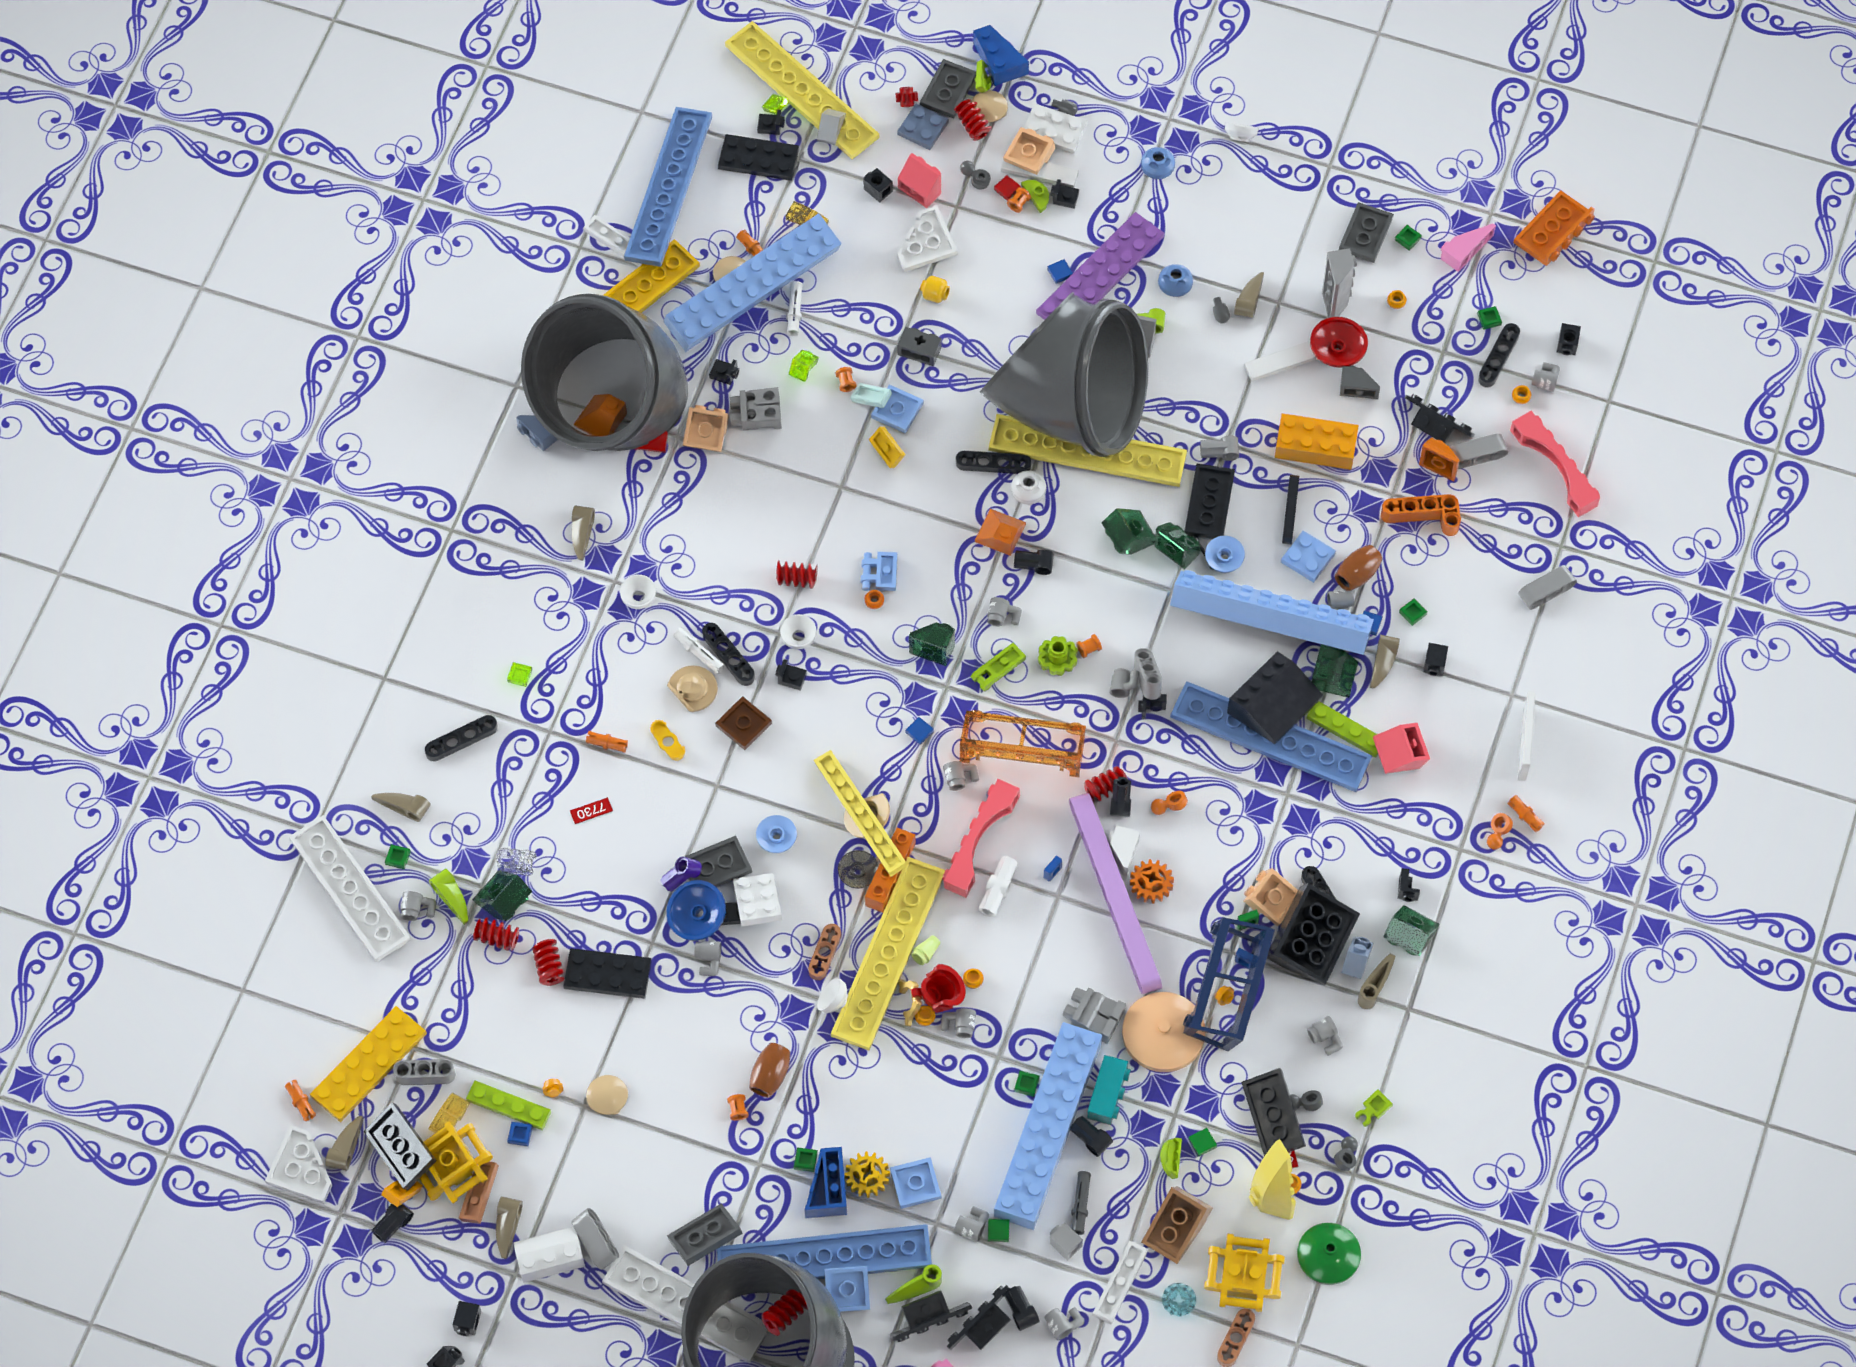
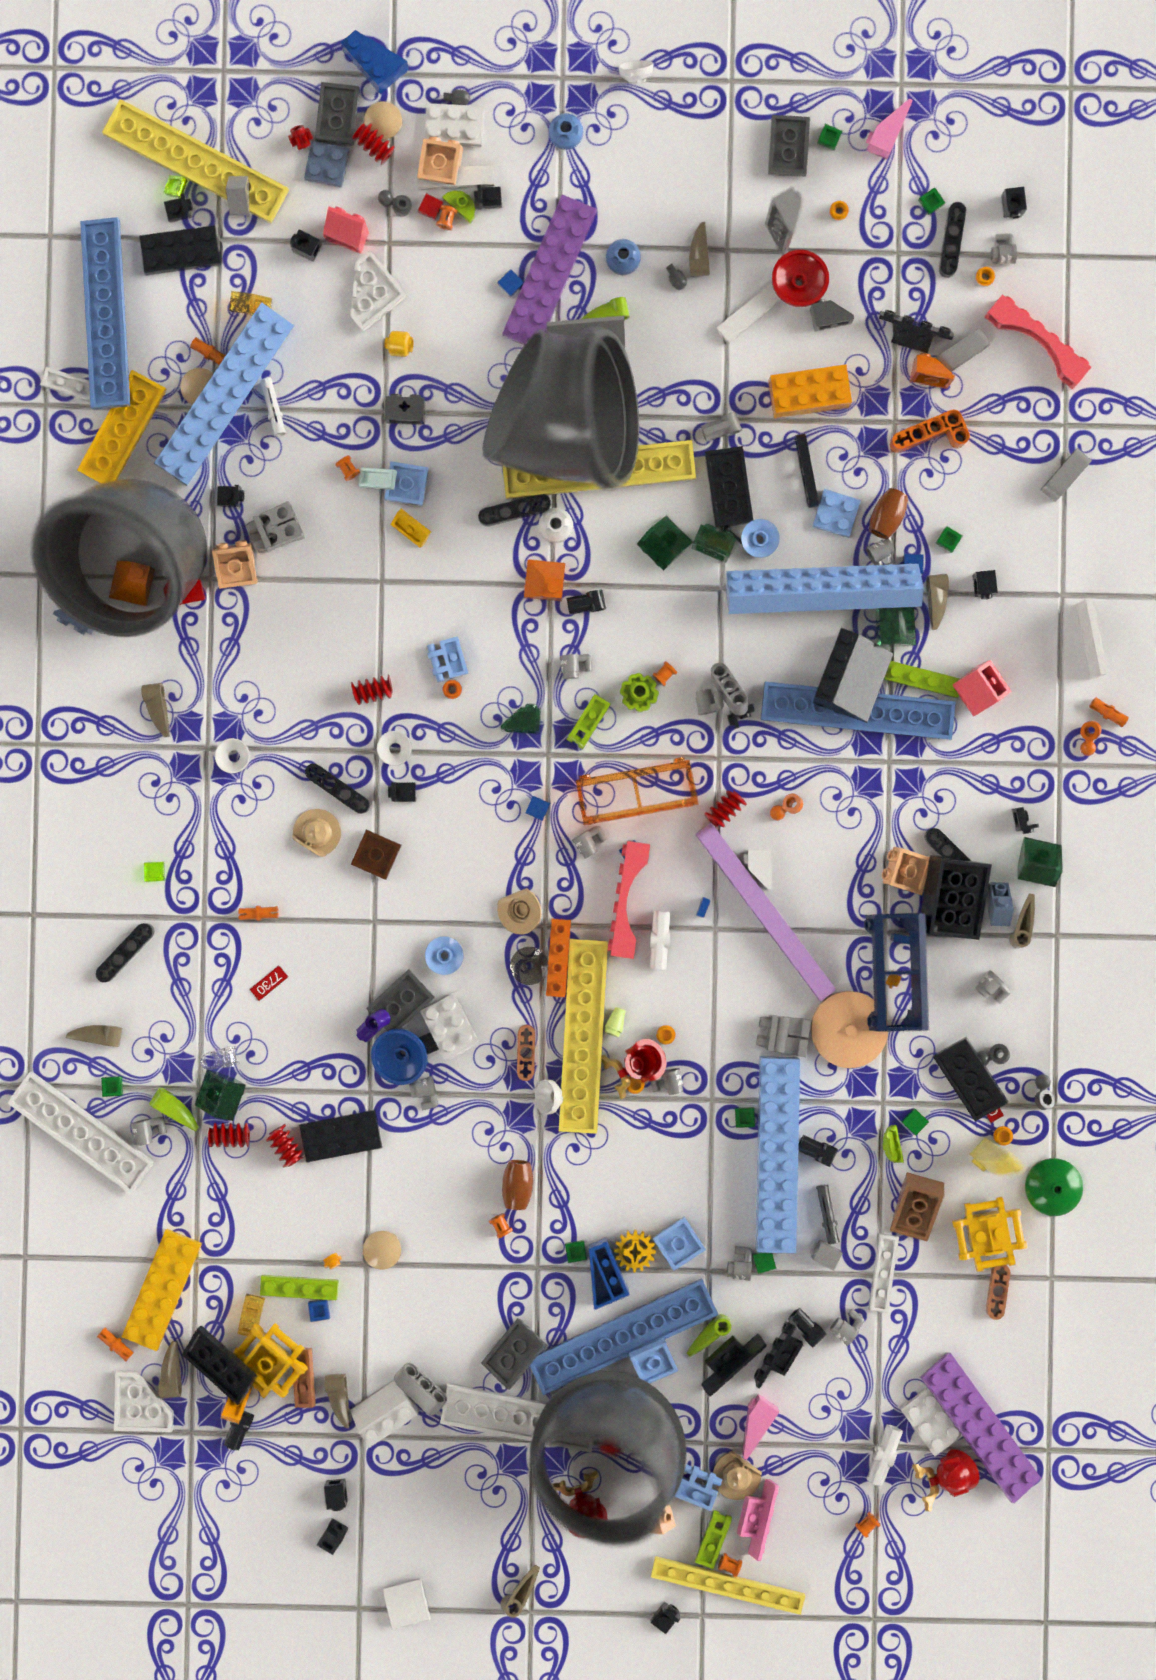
camera: 15 degrees left, 25 degrees up
(433, 1077) = (206, 1289): light grey beam -> none
(661, 731) = (303, 886): yellow piece -> none
(692, 645) = (289, 786): white pin -> none
(802, 364) = (301, 465): clear neon green bracket -> none
(860, 813) = (514, 915): light yellow plate -> none
(982, 81) = (367, 92): lime plate -> none
(1108, 1090) = (819, 1103): teal brick -> none
(1121, 797) = (743, 820): black piece -> none
(1148, 872) = (795, 881): orange gear -> none
(1185, 1292) = (947, 1276): clear light blue gear -> none
(1250, 917) = (892, 900): green tile -> none
(1375, 1106) = (1056, 1039): lime plate -> none
(1554, 228) = (967, 82): orange bracket -> none

